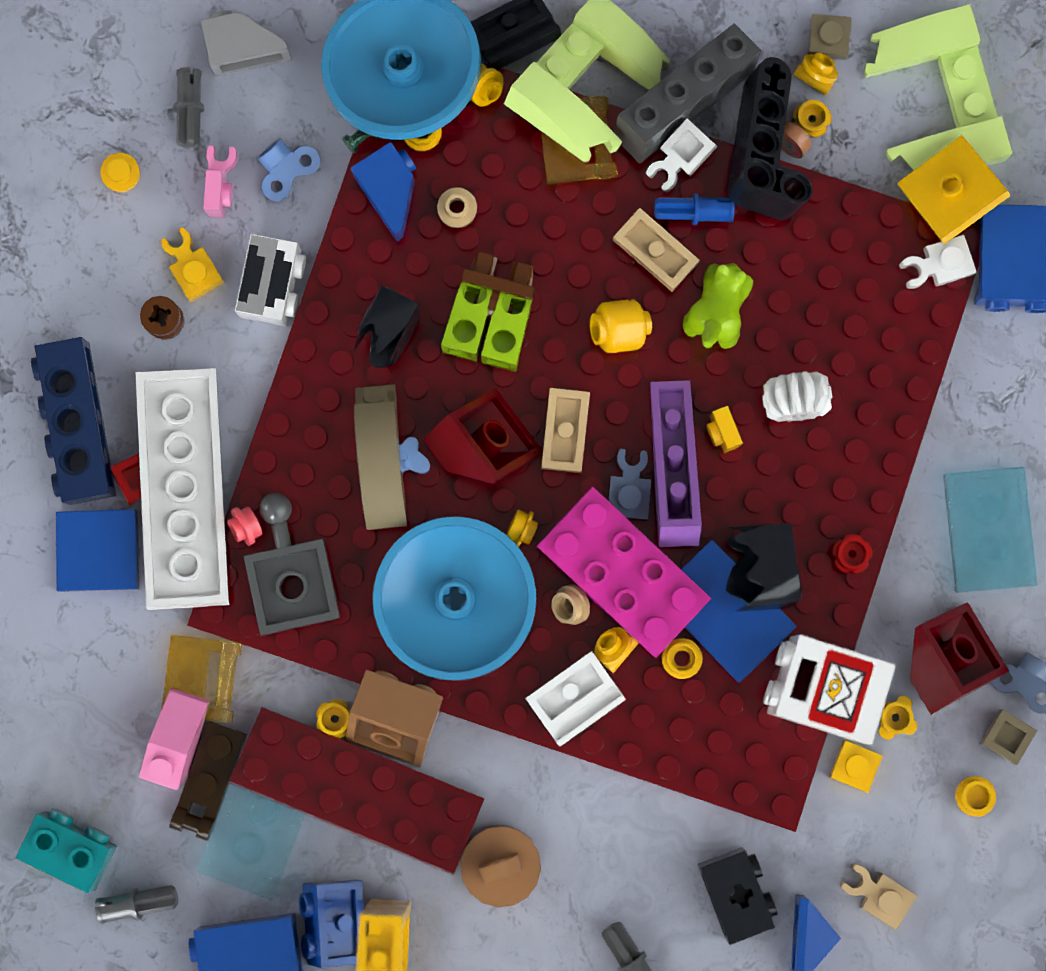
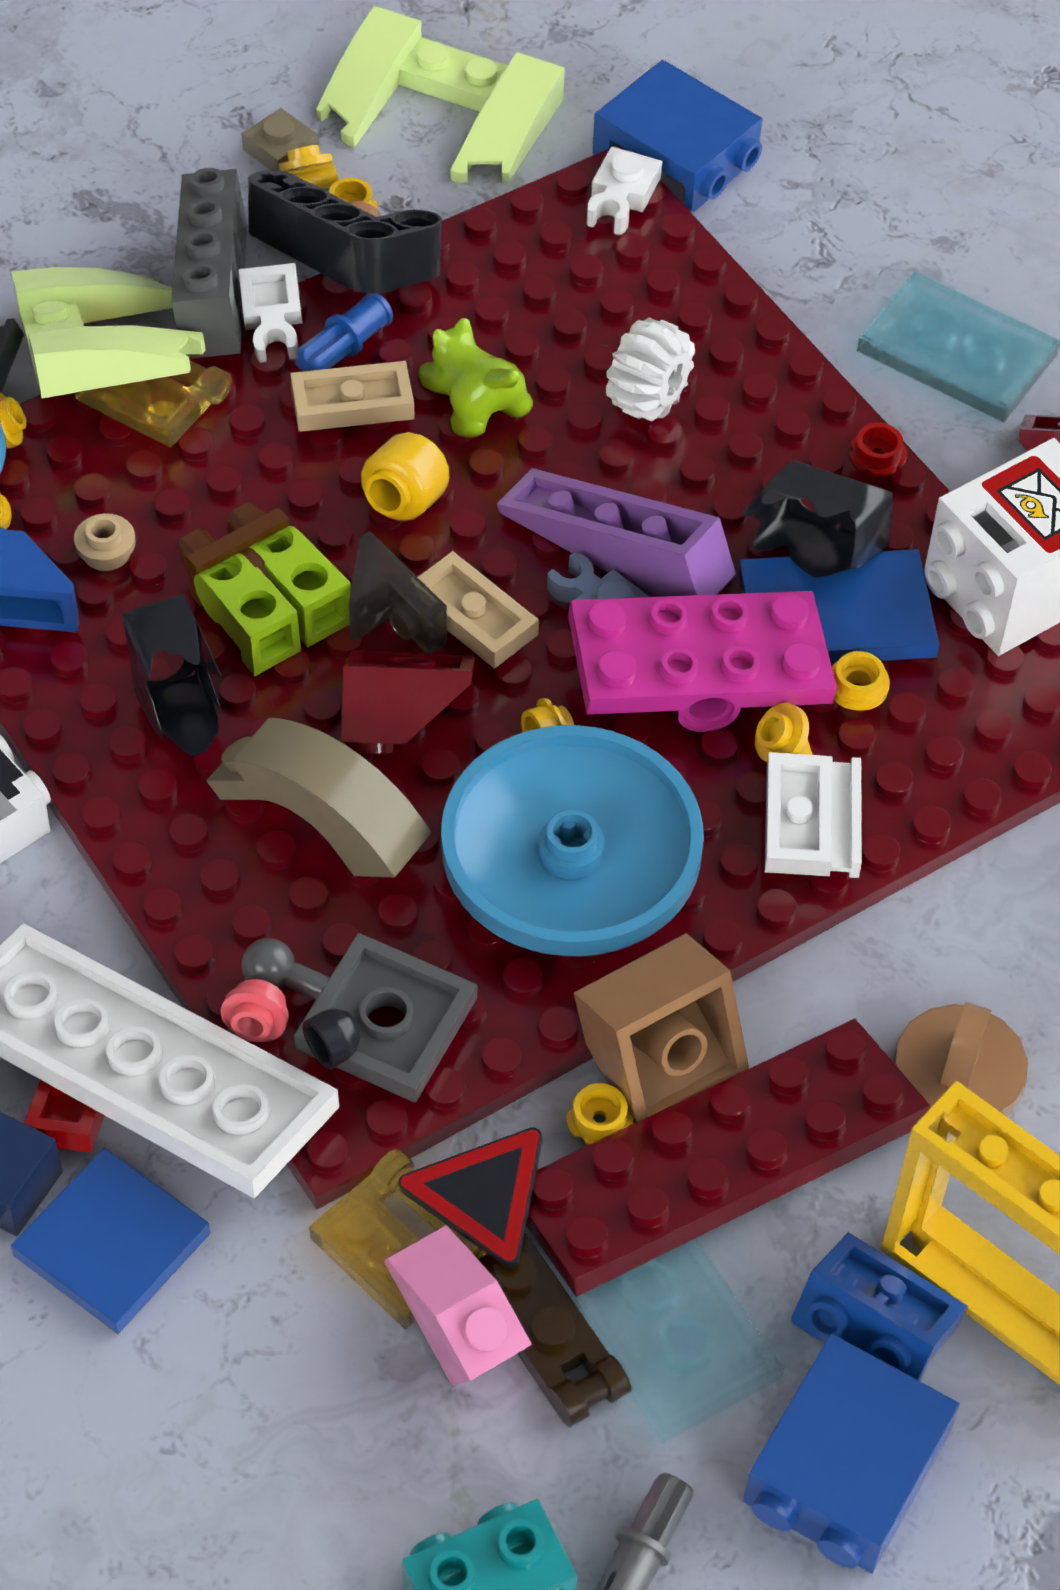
camera: 55 degrees left, 30 degrees down
(243, 703) = (483, 1192): none -> piece
(249, 580) = (332, 1036): none -> black hinge
(538, 374) = (392, 592): none -> clear smoke slope
(571, 605) = (680, 756): tan plate -> none
(723, 430) = (622, 462): yellow plate -> none
(953, 189) = (554, 123): yellow plate -> none

